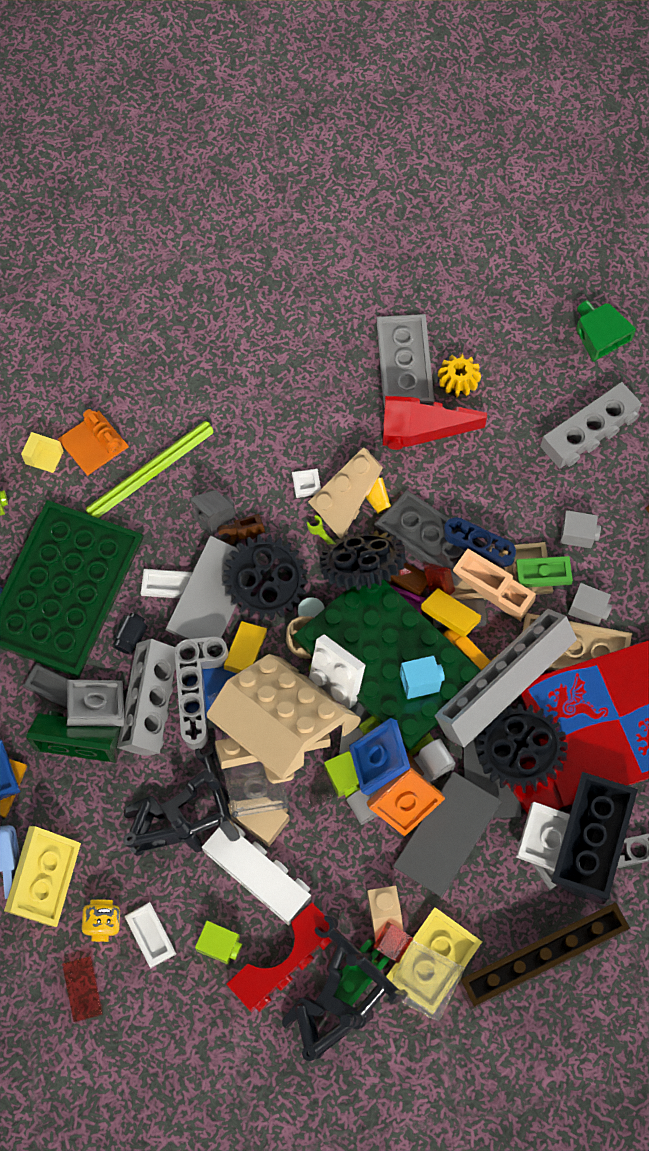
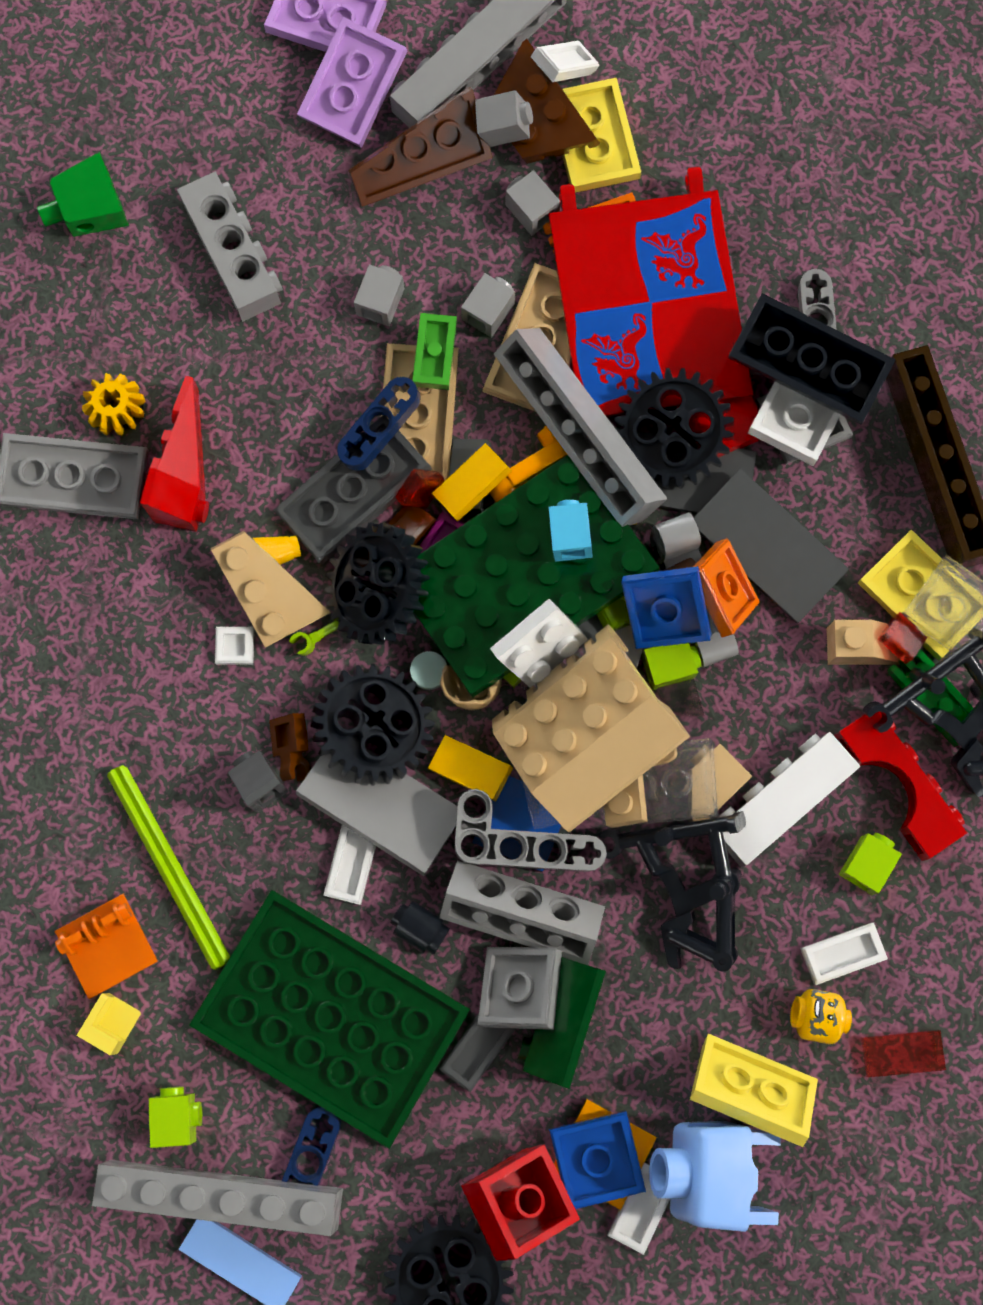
camera: 80 degrees left, 10 degrees up
(495, 584) = (443, 416): light nougat slope -> none

